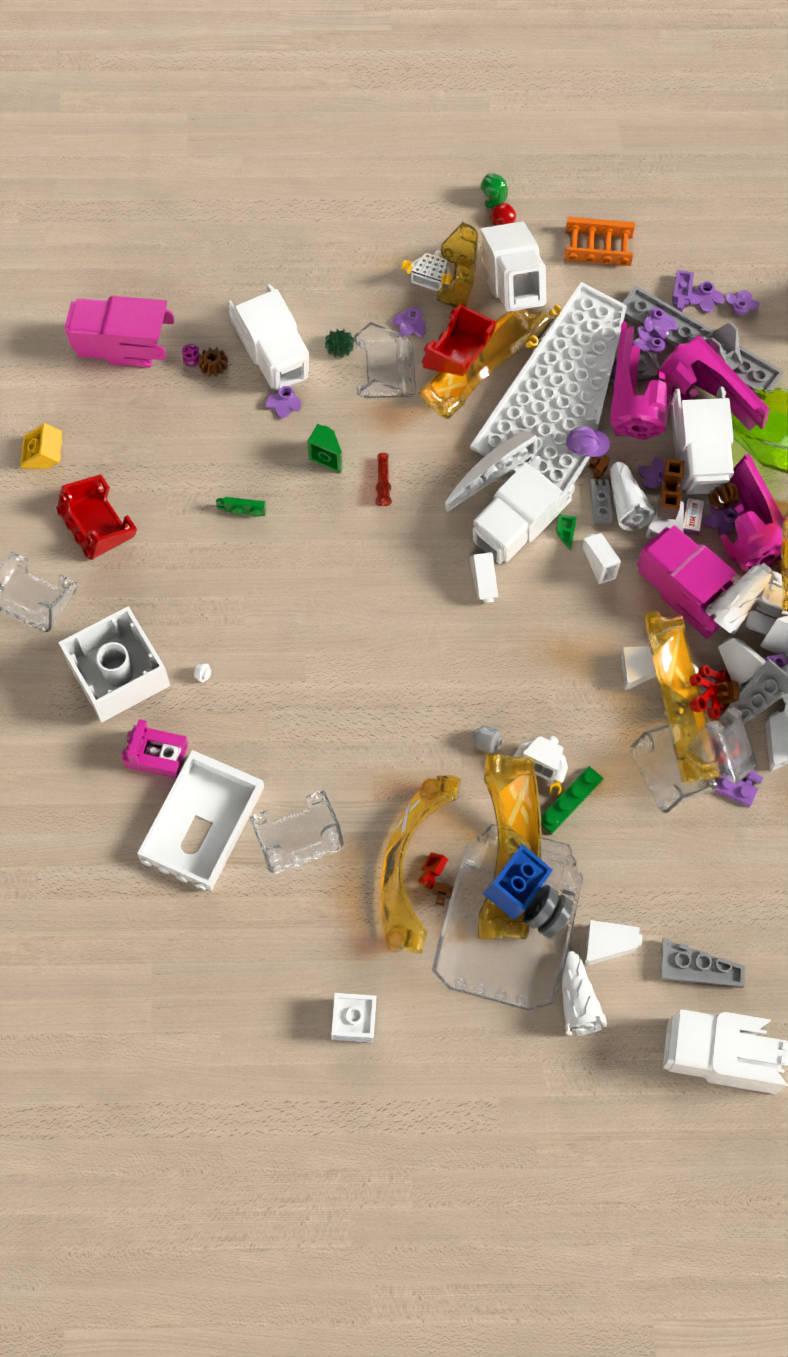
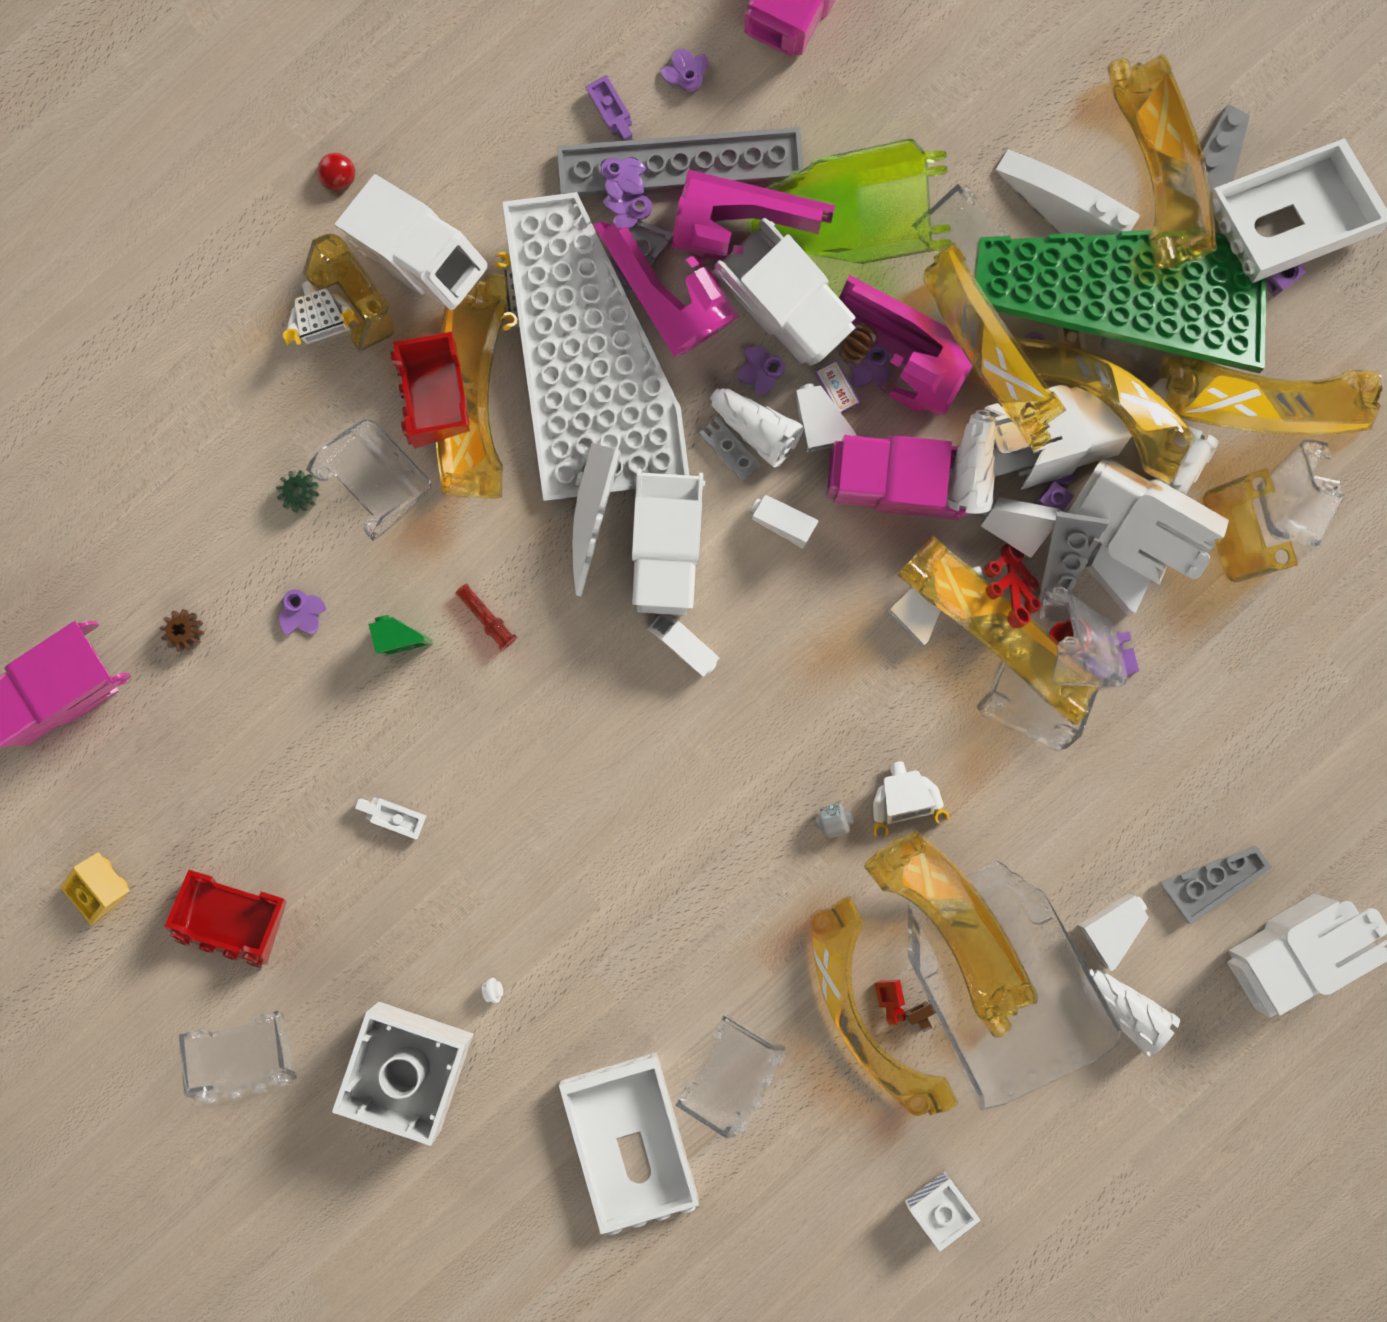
camera: 40 degrees left, 20 degrees up
(138, 745) = (503, 1131): dark pink brick -> none
(193, 351) = (144, 640): magenta wheel -> none
(235, 538) = (392, 816): none -> white hinge
(242, 506) = (364, 778): green hinge -> none
(271, 338) = (224, 555): white piece -> none
(409, 324) = (351, 403): medium lavender plate -> none
(495, 188) = (299, 147): green hair -> none
(518, 882) = (989, 952): blue slope -> none
(548, 911) = (1043, 960): dark grey wheel -> none
(565, 529) = (720, 513): green tile -> none
(570, 800) = (963, 813): green plate -> none
(587, 442) = (665, 396): medium lavender piece -> none
(599, 227) = (463, 95): orange fence -> none
(599, 466) = (697, 411): reddish brown tile -> none
(670, 489) = (795, 380): reddish brown arch -> none
(707, 298) = (646, 97): medium lavender plate -> none
(724, 342) = (713, 140): light grey piece -> none
(728, 692) = (1032, 572): reddish brown tile -> none

